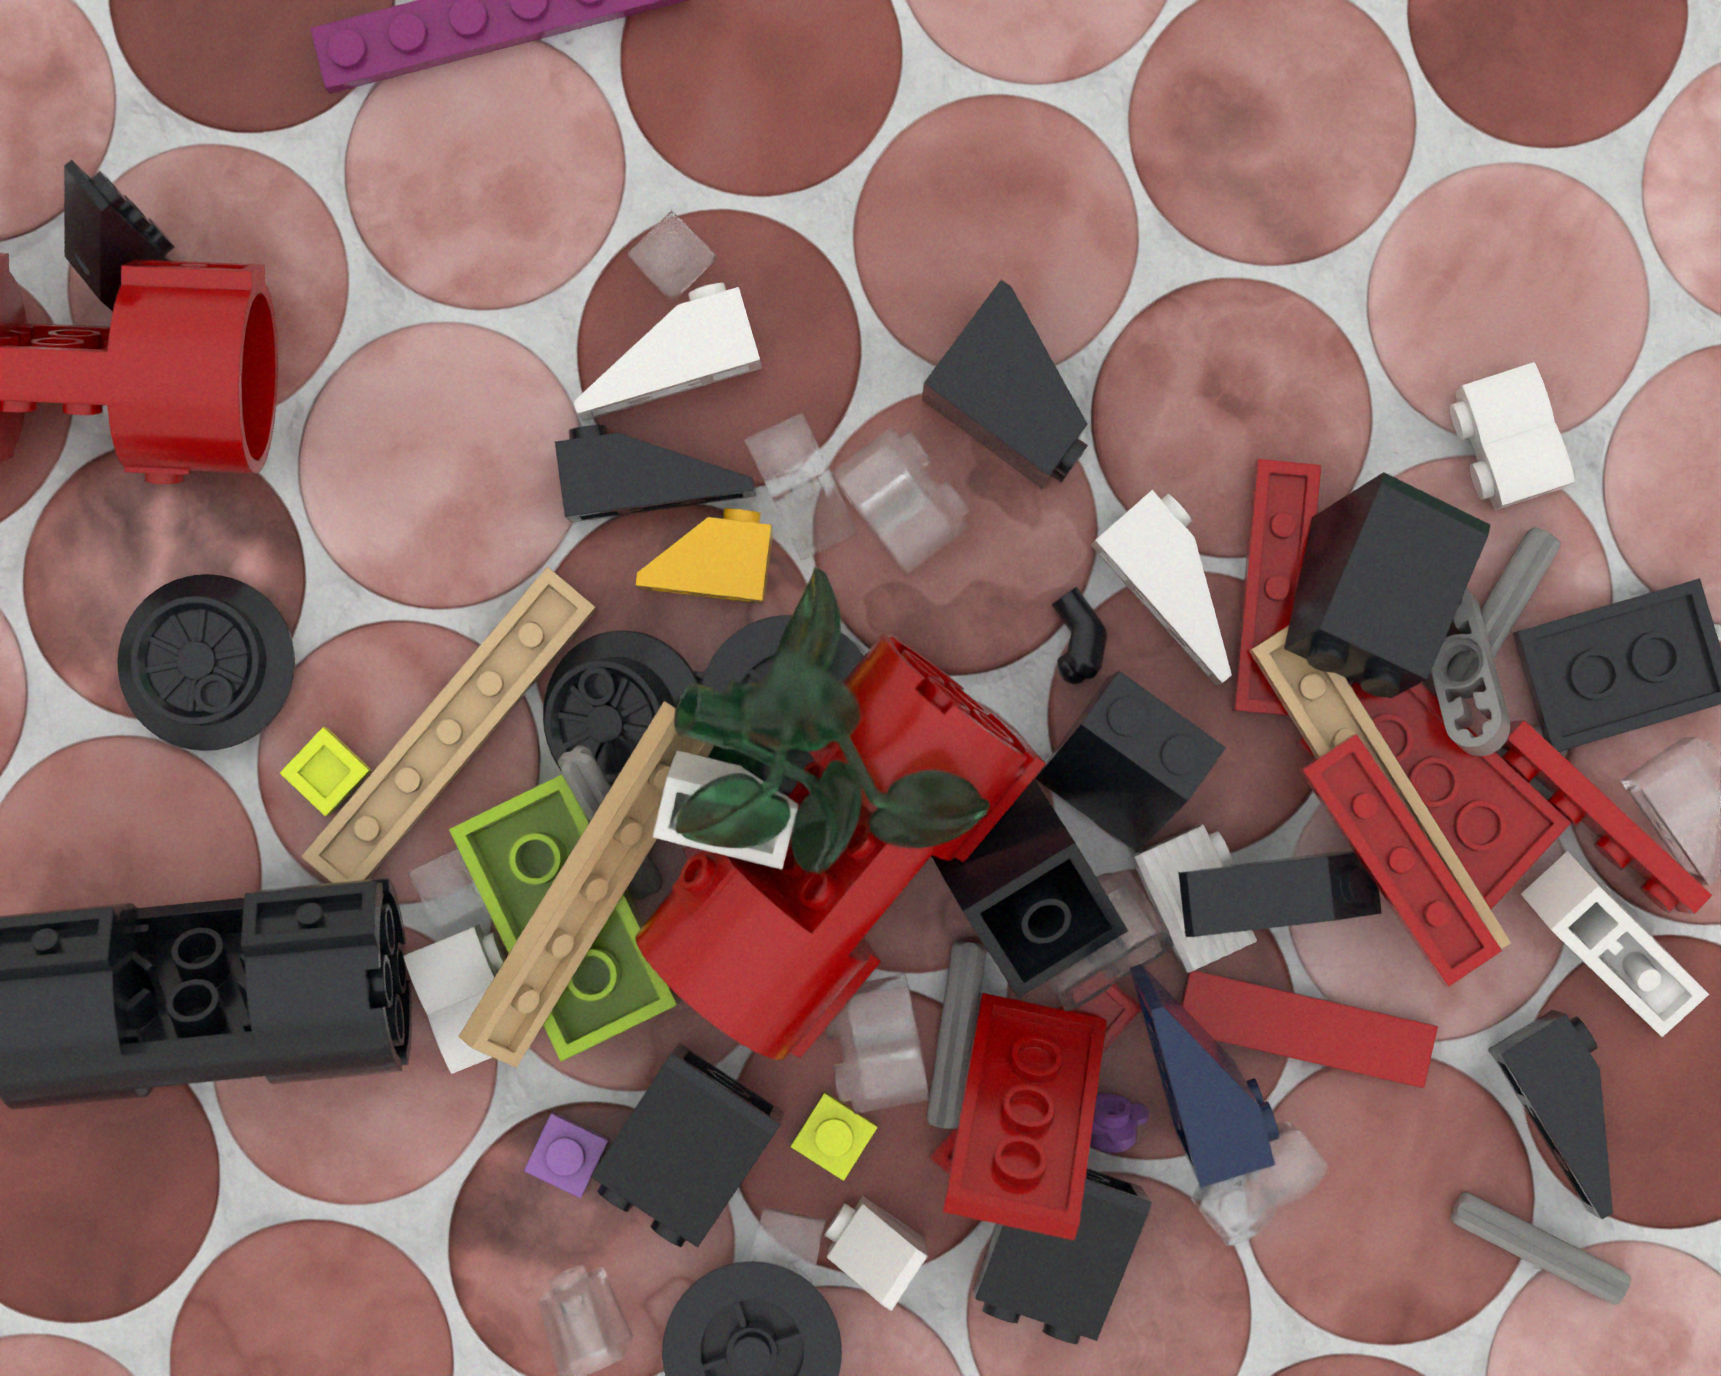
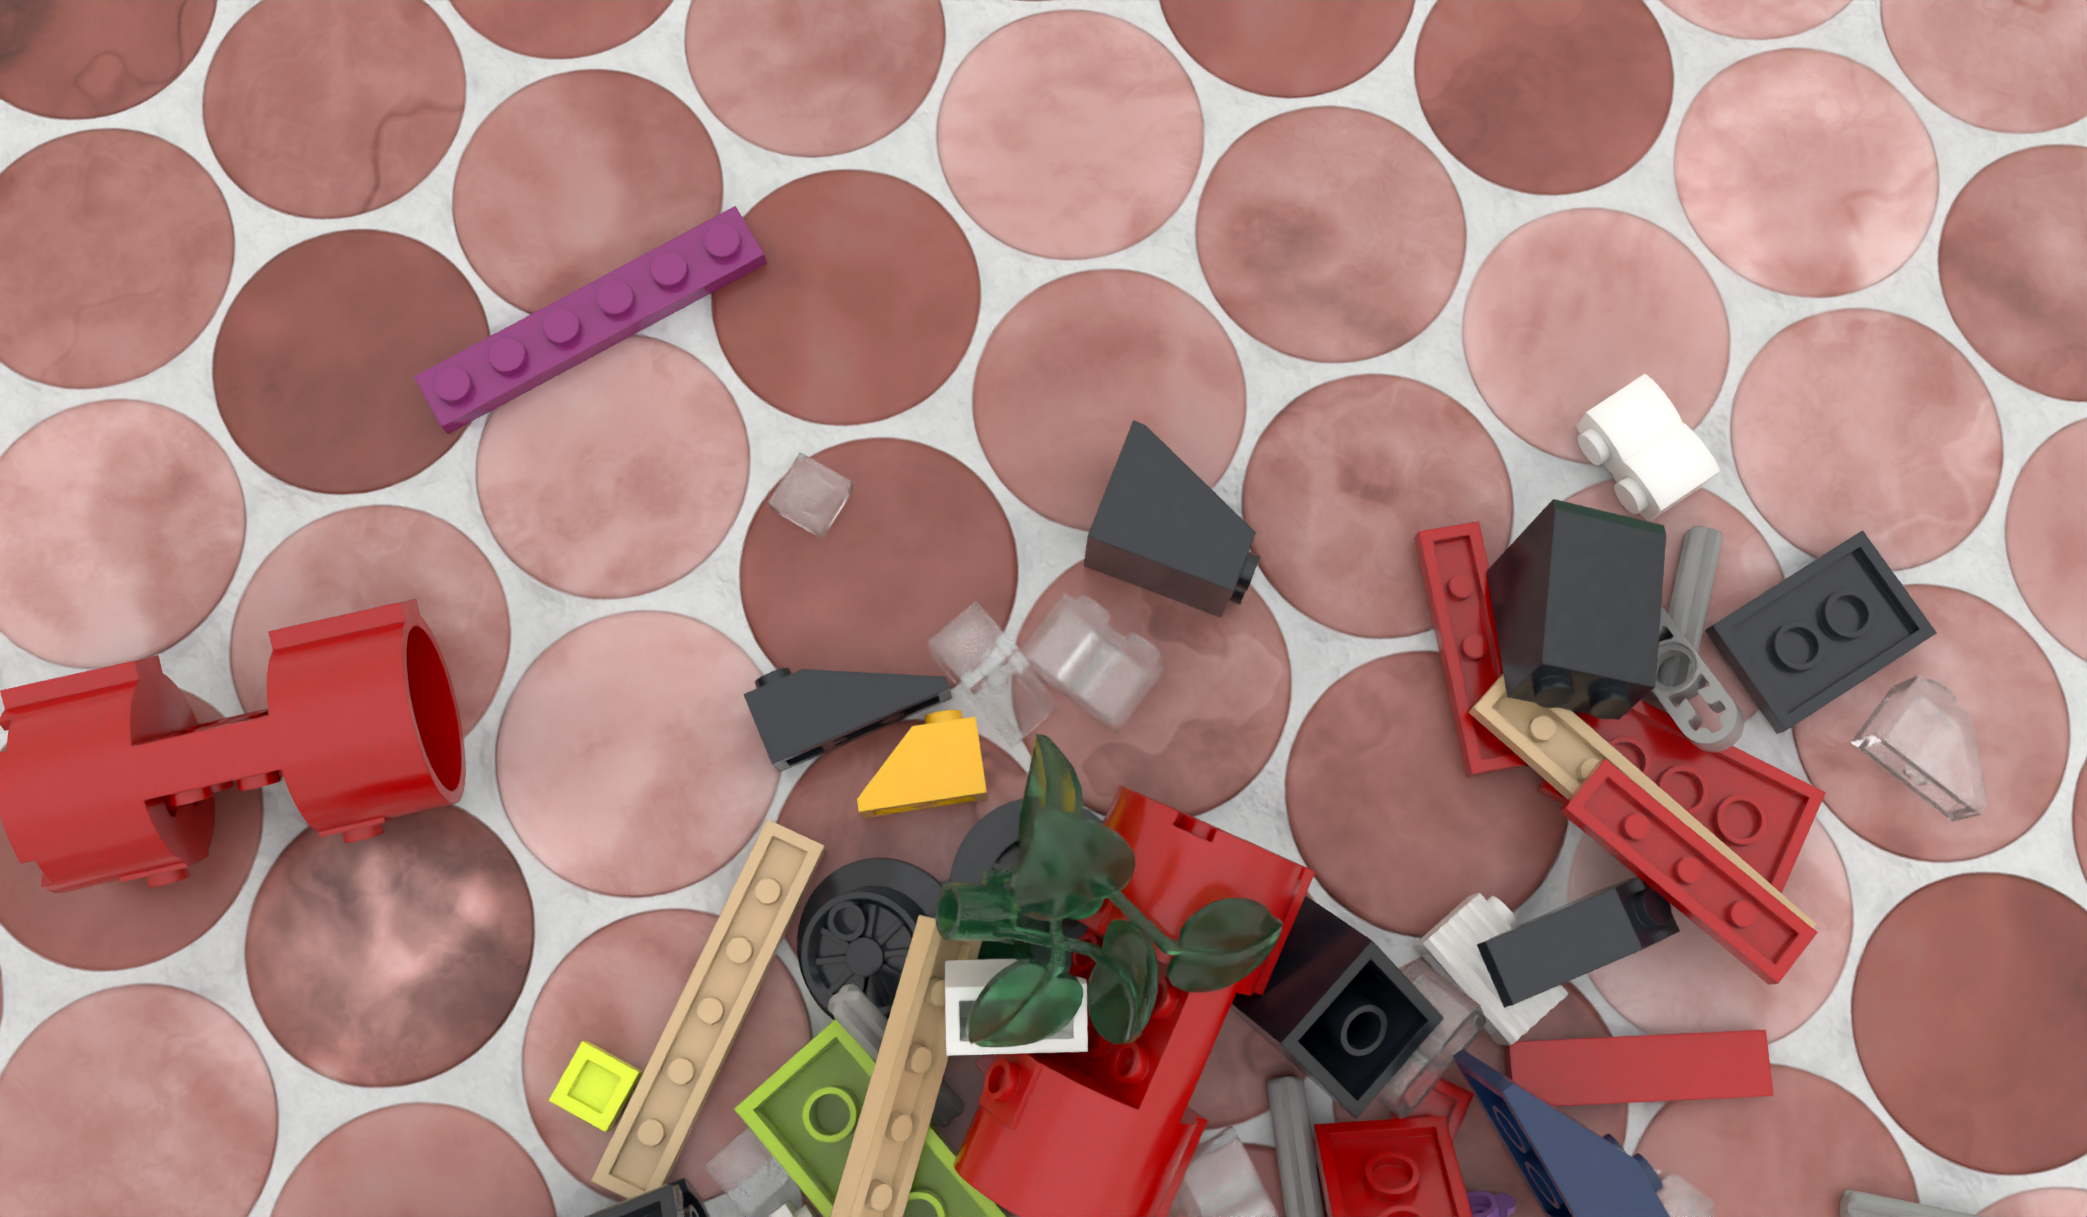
camera: 25 degrees left, 10 degrees down
(105, 232) = (247, 606): black slope -> none
(206, 662) = (448, 1009): black wheel -> none
(685, 350) = (848, 576): white slope -> none
(1086, 641) = (1308, 747): black arm -> none
(1129, 761) = (1392, 847): black slope -> none
(1164, 571) = (1364, 661): white slope -> none
(1562, 1094) = (1912, 1066): black slope -> none
(1613, 944) = (1905, 897): white slope -> none
(1619, 837) = (1873, 792): red plate -> none

